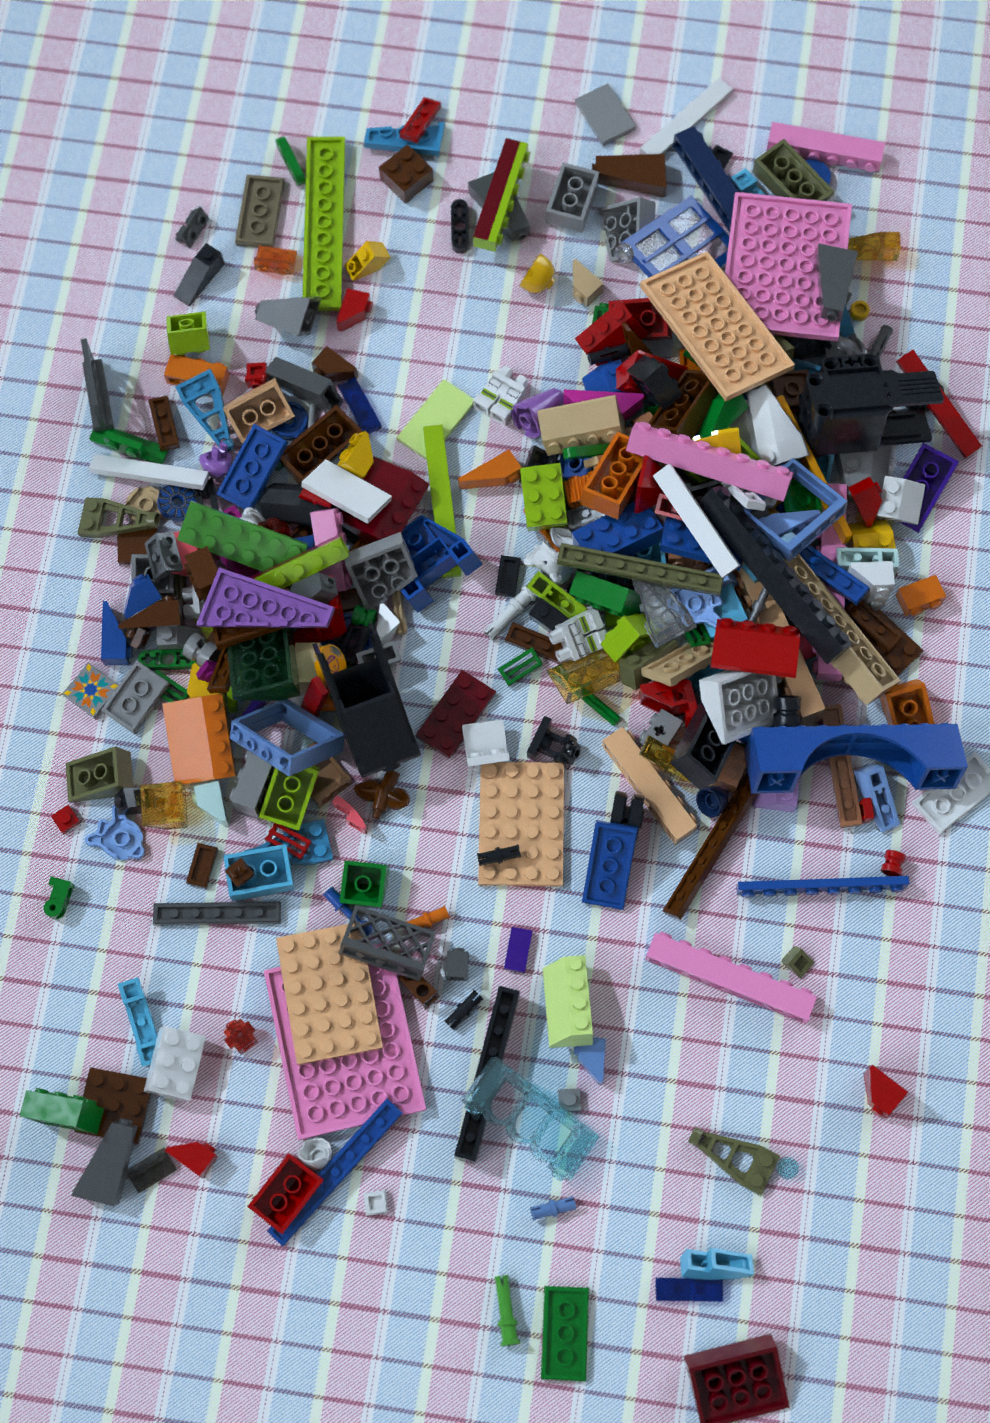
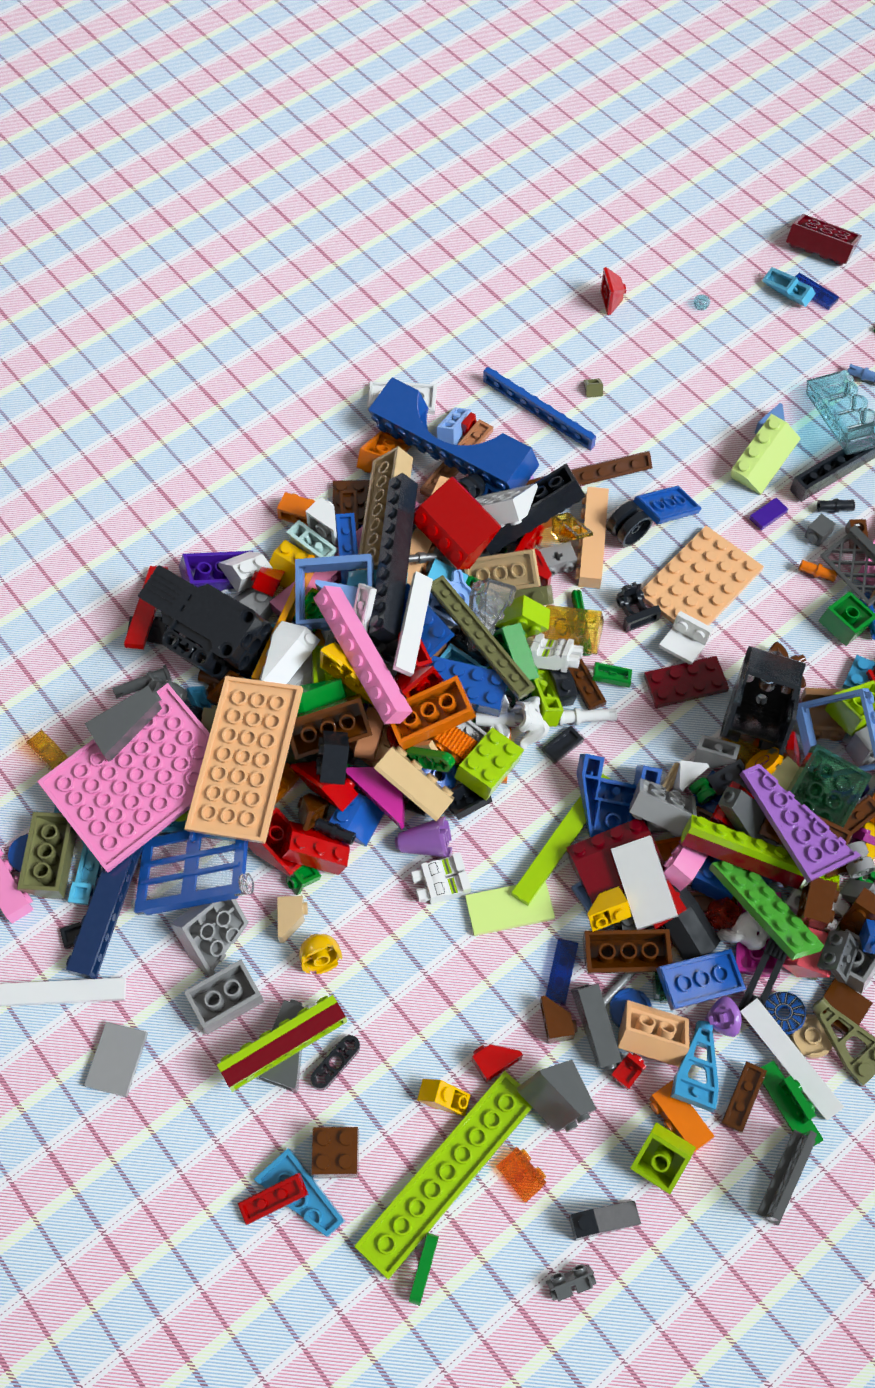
camera: 140 degrees left, 10 degrees down
(259, 211) = (493, 1242): dark tan tile -> none
(353, 818) = (821, 666): coral slope -> none
(495, 472) = (502, 823): orange slope -> none
(498, 855) = (737, 565): black pin -> none
(570, 1099) = (806, 417): light grey plate -> none
(633, 172) = (150, 976): reddish brown slope -> none
(731, 977) = (646, 404): bright pink brick -> none
(760, 1169) = (723, 311): olive plate -> none
(893, 863) = (483, 388): red wheel -> none

